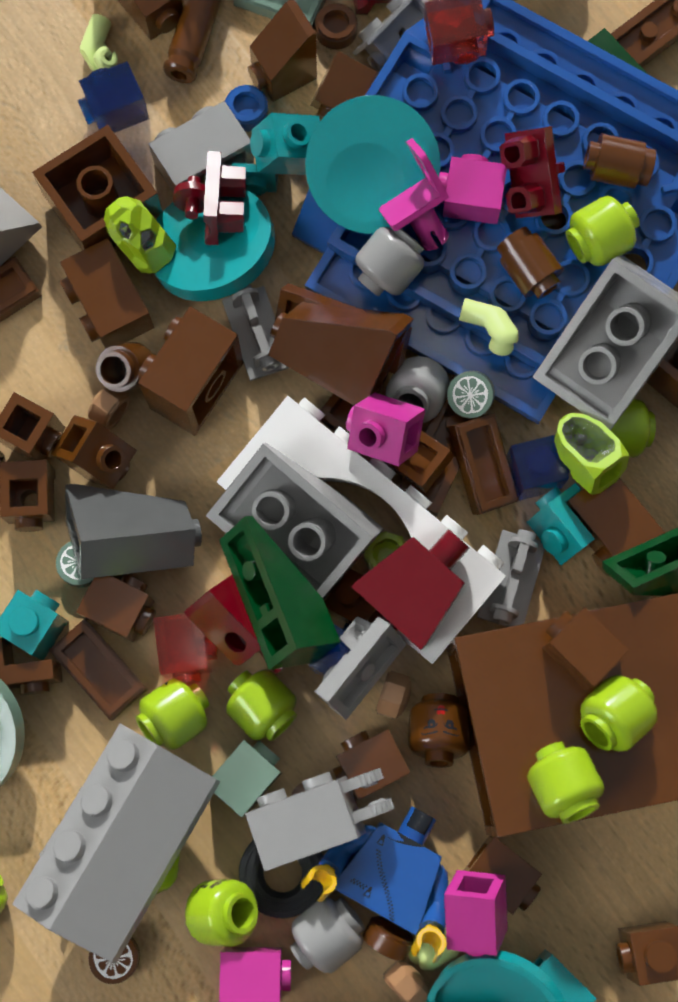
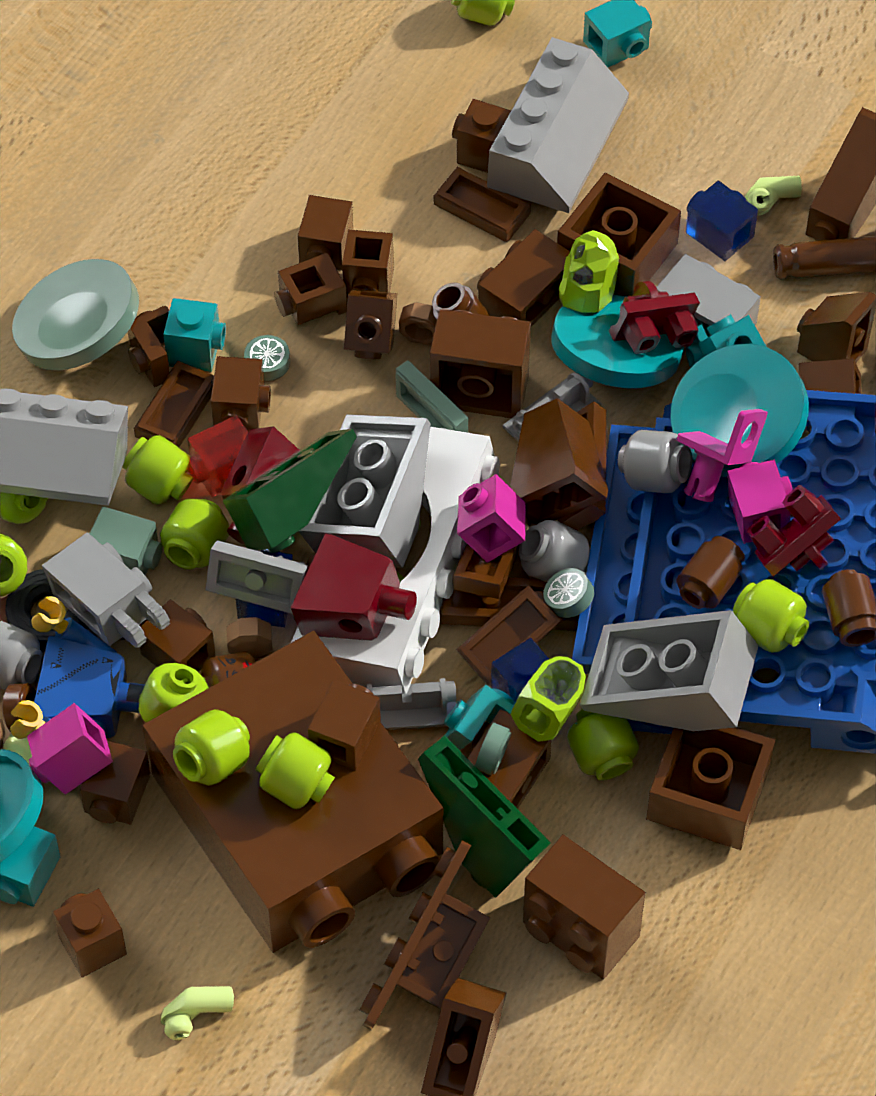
camera: 70 degrees right, 20 degrees down
(128, 531) = (307, 370): dark grey slope -> none
(207, 434) = (427, 400): none -> sand green tile
(248, 105) = (777, 329): blue tile -> none
(451, 792) = (169, 687): none -> lime head
(496, 322) = (640, 572): yellowish green arm -> none
(622, 523) = (493, 749): none -> sand green tile

